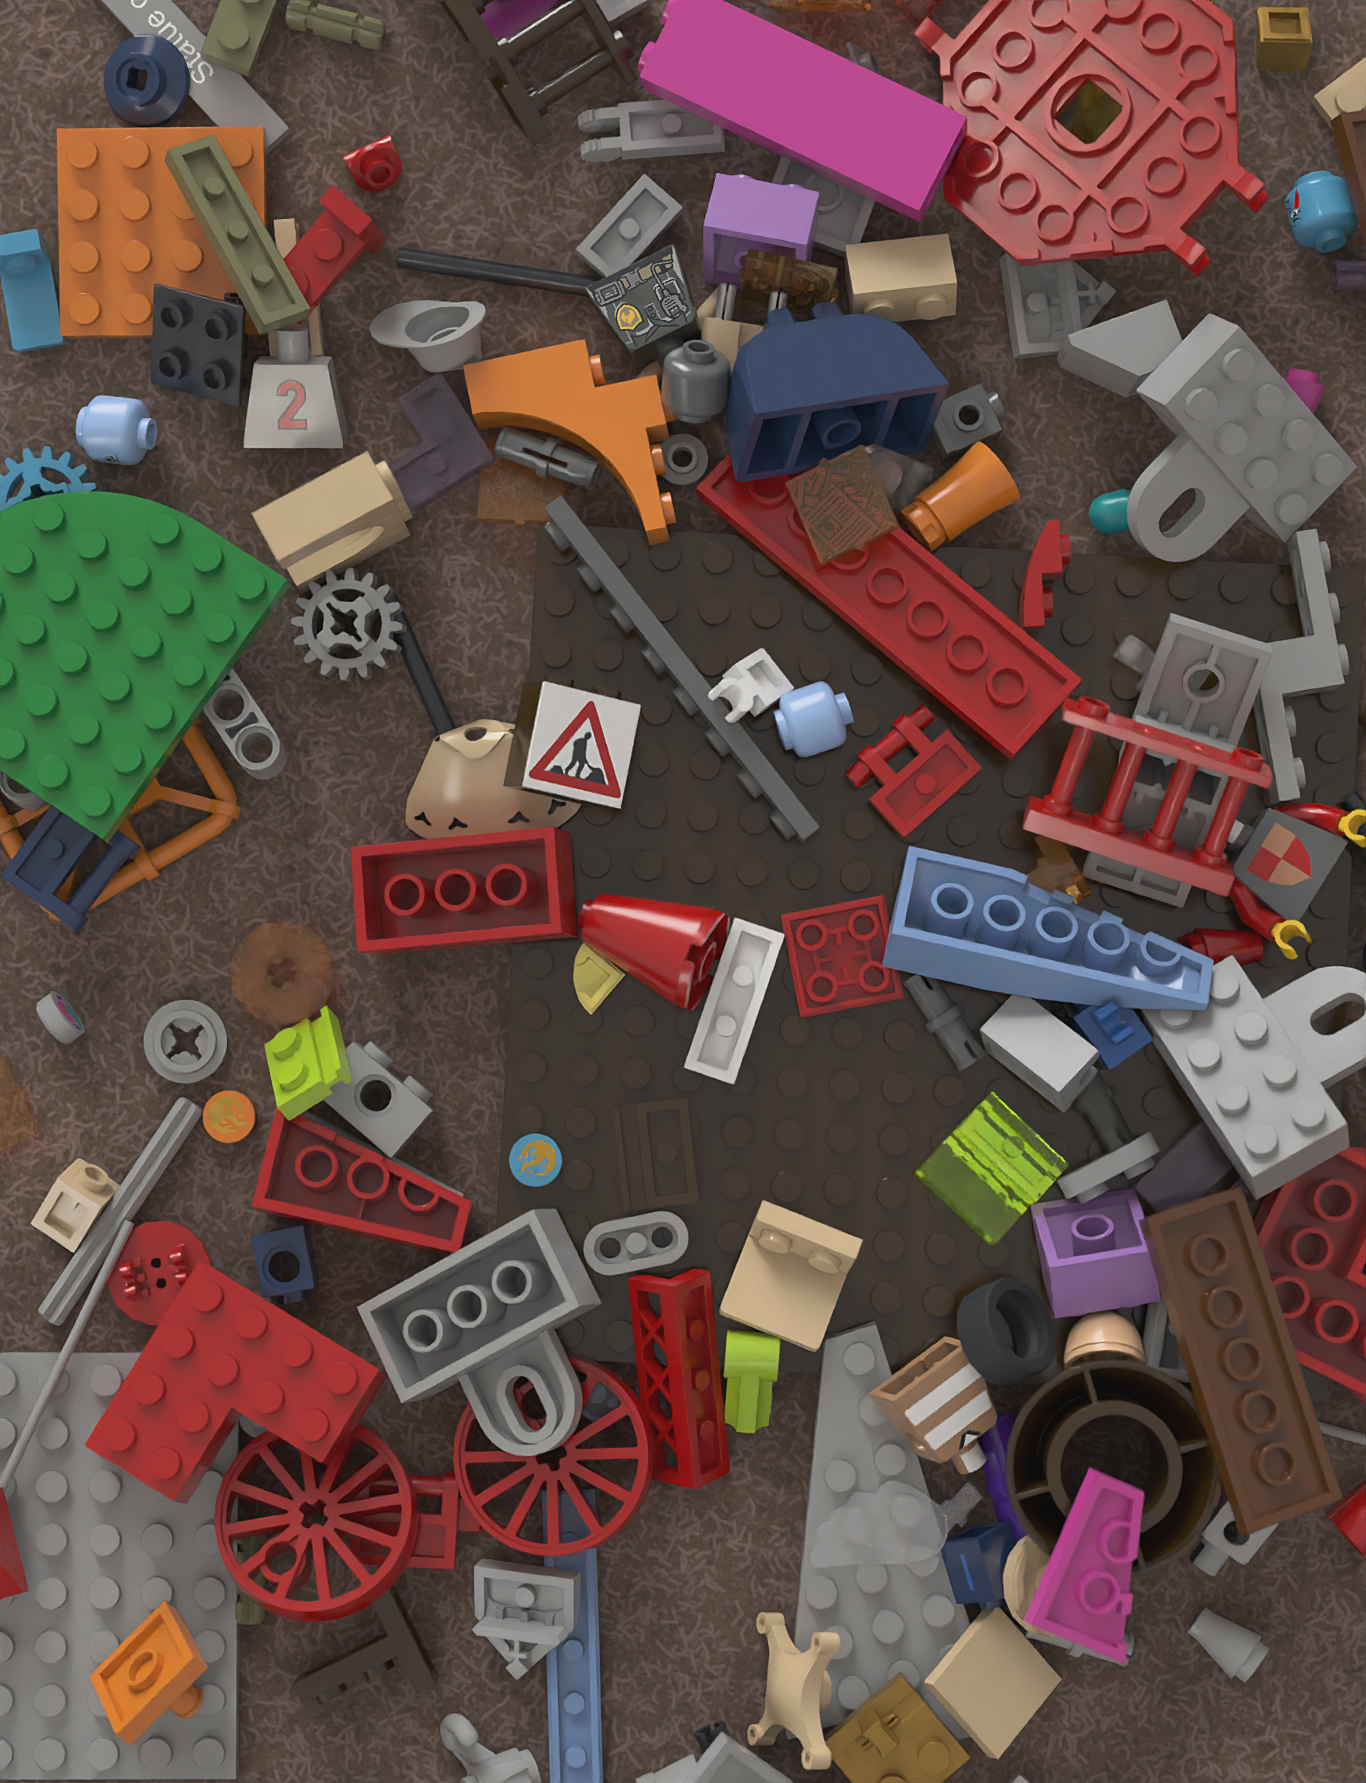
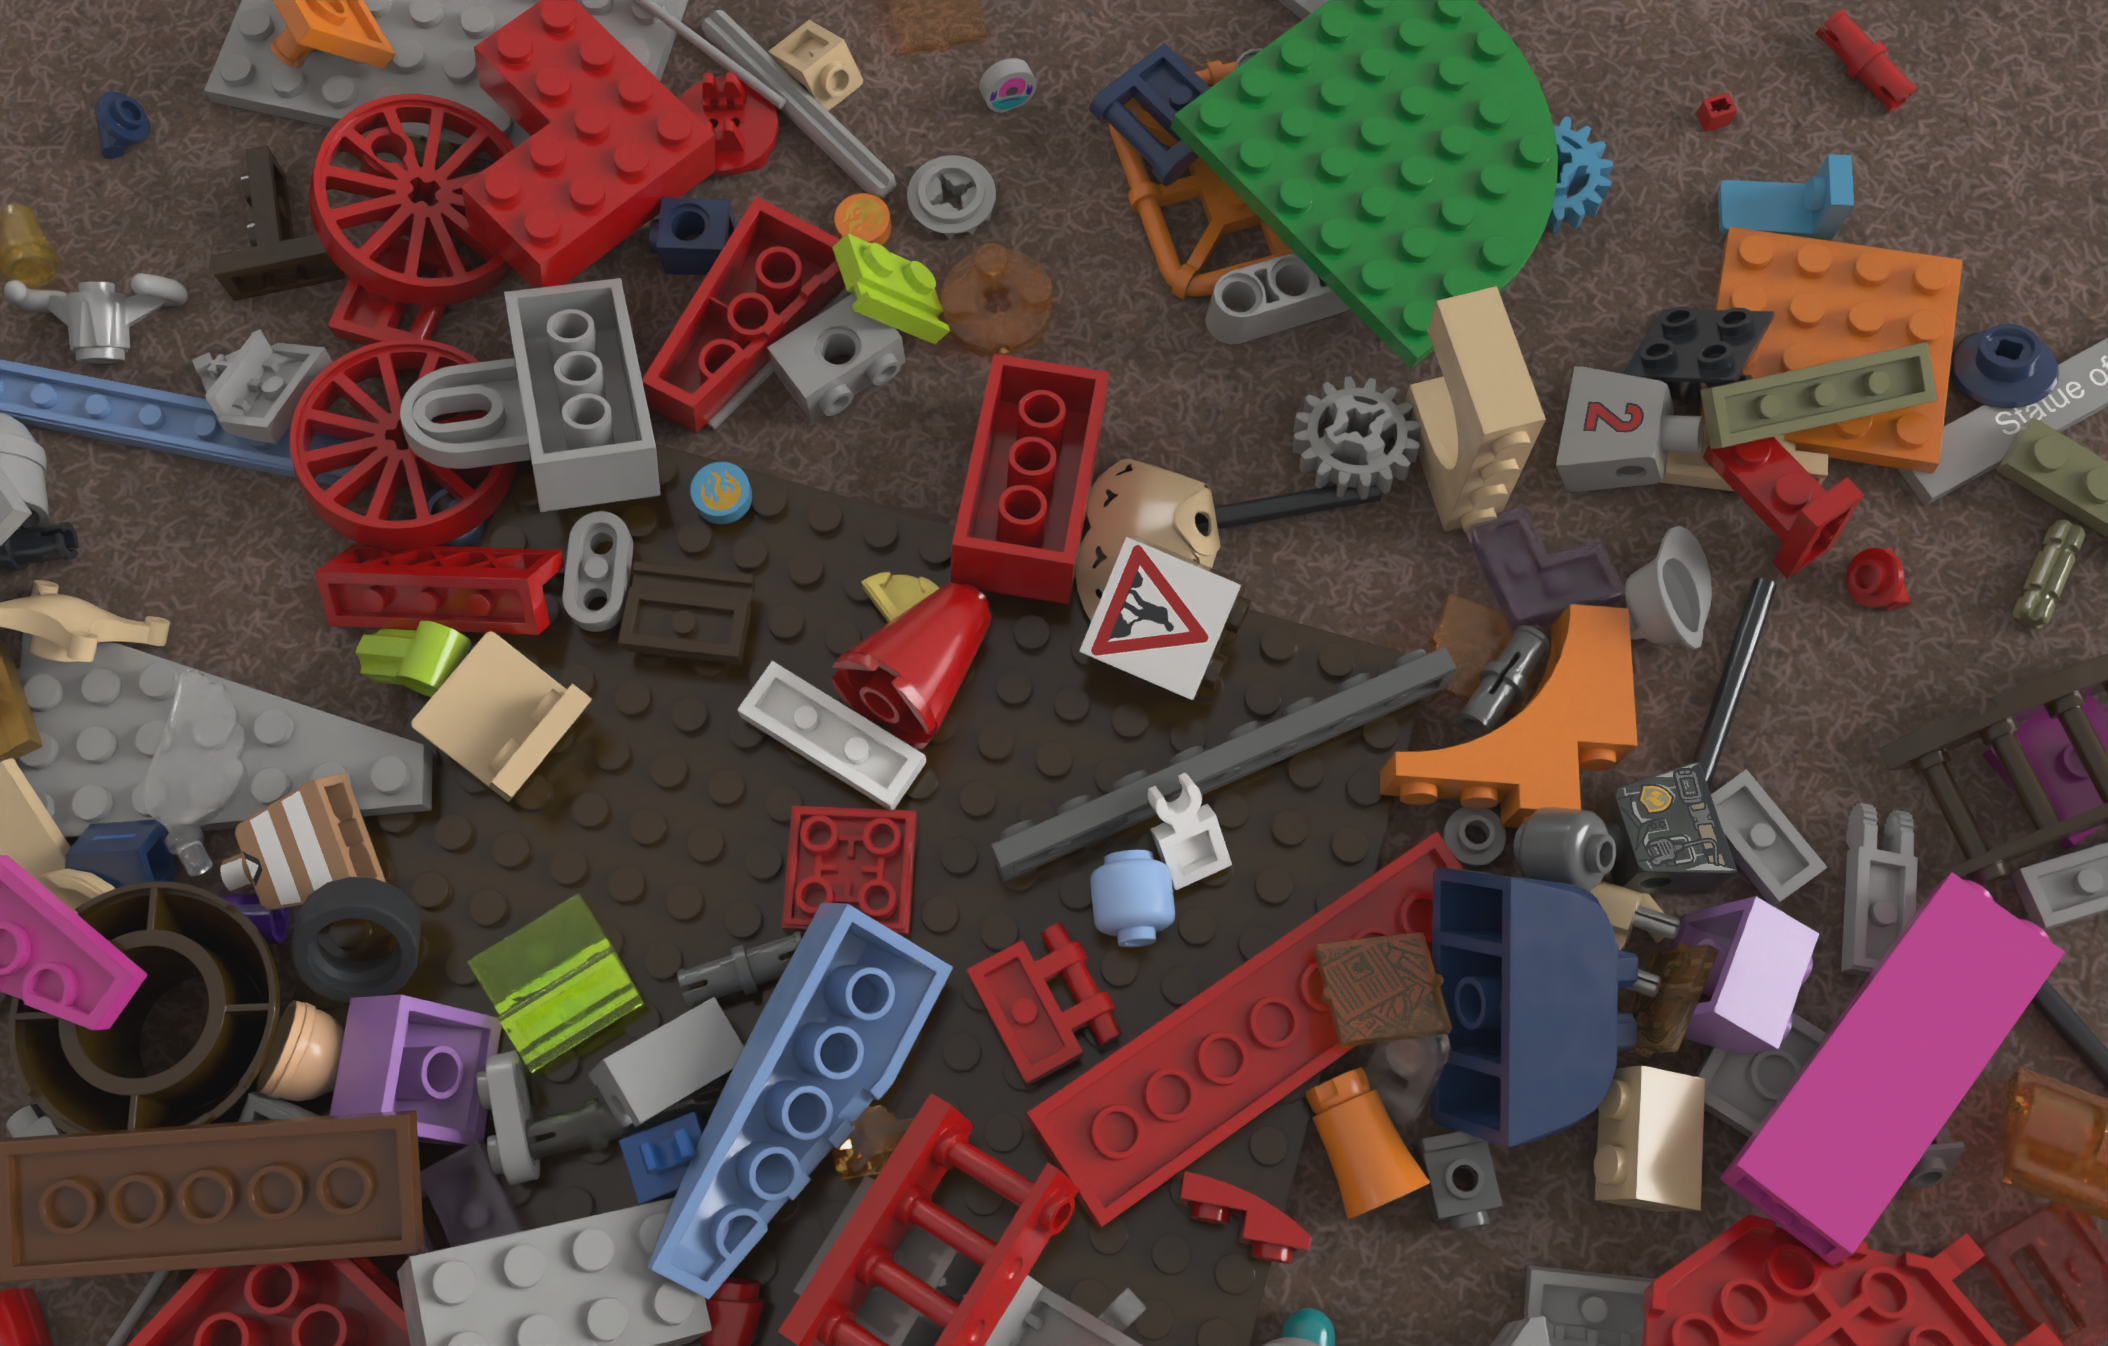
camera: 105 degrees right, 15 degrees down
(116, 430) = (1618, 252): light blue head -> none

